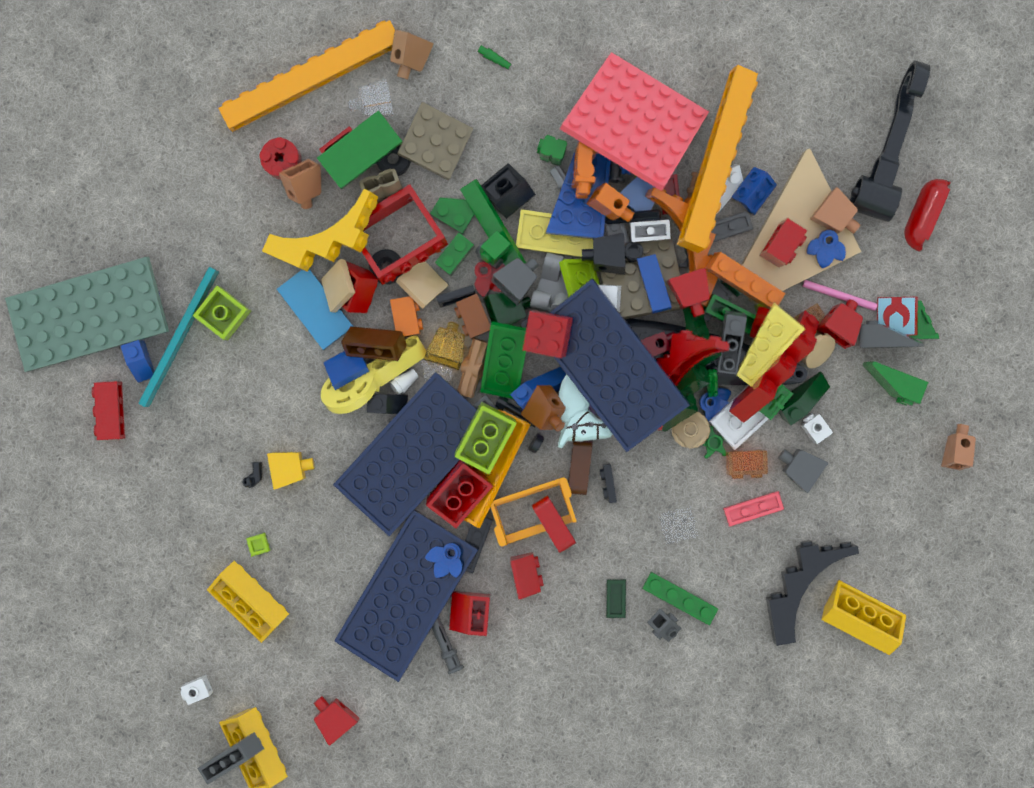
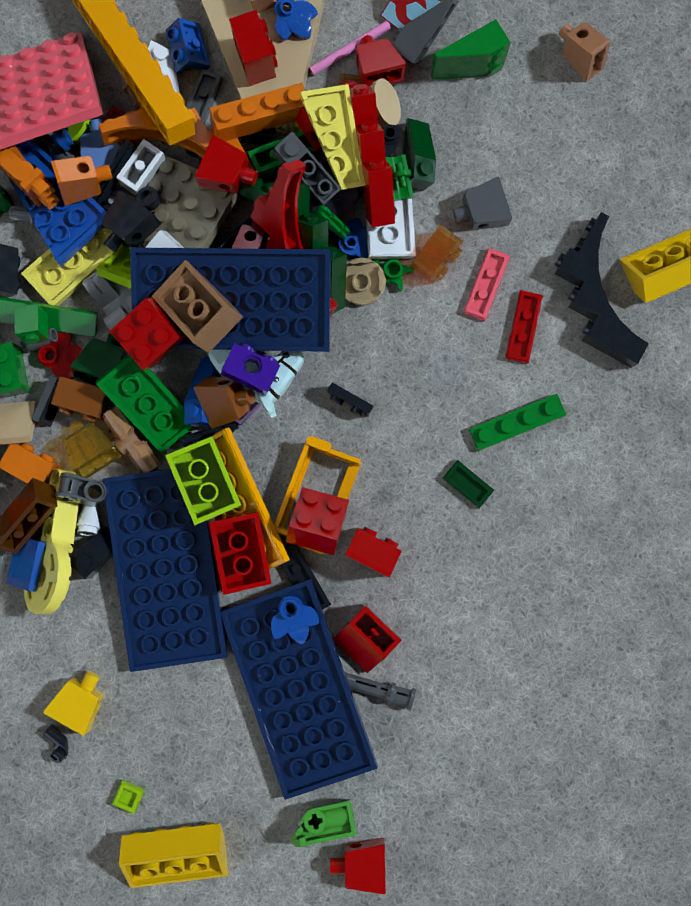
camera: 50 degrees left, 5 degrees down
(345, 683) = (336, 824): none -> bright green piece
(417, 362) = (78, 489): none -> dark grey piece
(516, 279) = (77, 327): dark grey torso -> none
(517, 526) = (317, 521): none -> red brick
(536, 443) = (254, 439): black tile -> none
(553, 524) = (346, 484): red beam -> none
(569, 404) = (235, 370): none -> dark purple brick
(580, 467) = (311, 414): reddish brown beam -> none
(588, 350) = (197, 307): none -> medium nougat slope
(654, 284) = (192, 200): blue tile -> none
(664, 625) = (531, 457): dark grey brick -> none
(744, 554) = (524, 327): none -> red tile
(816, 428) = (456, 164): white brick -> none

